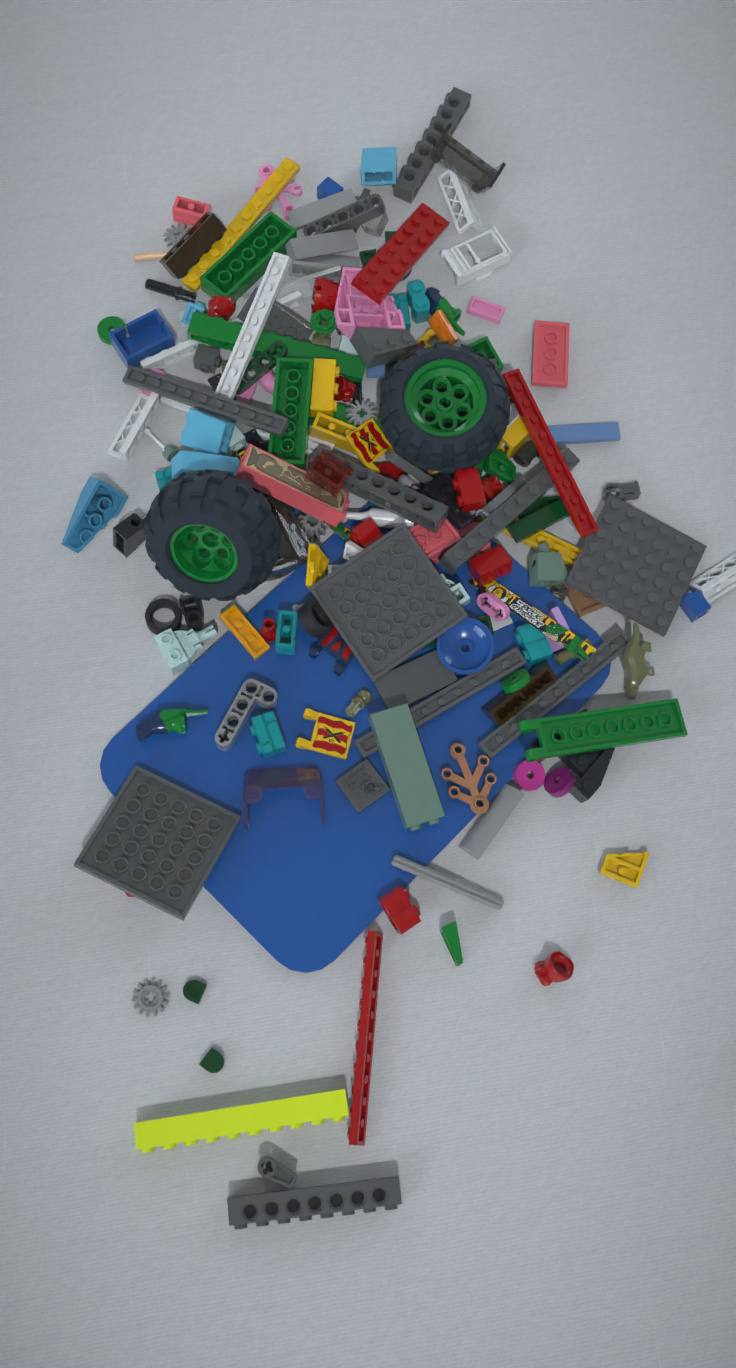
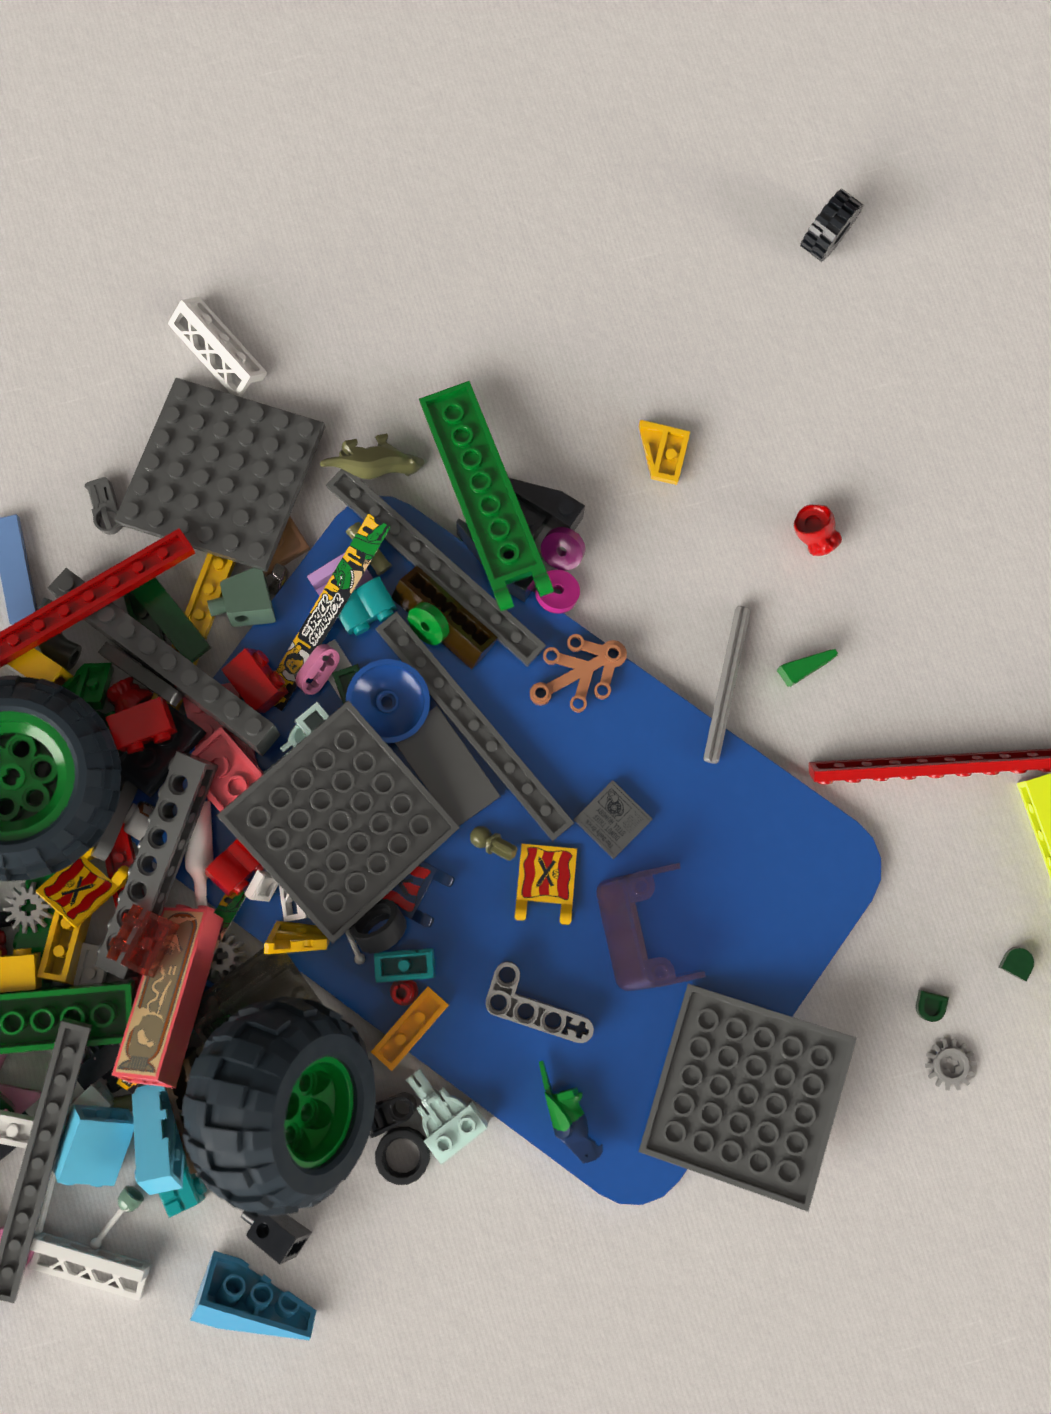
camera: 90 degrees left, 10 degrees up
(268, 734) = (562, 966): teal brick -> none
(399, 909) = (777, 743): red brick -> none
(406, 767) = (580, 761): sand green brick -> none
(491, 821) = (639, 637): light grey brick -> none
(694, 605) = (271, 386): blue brick -> none

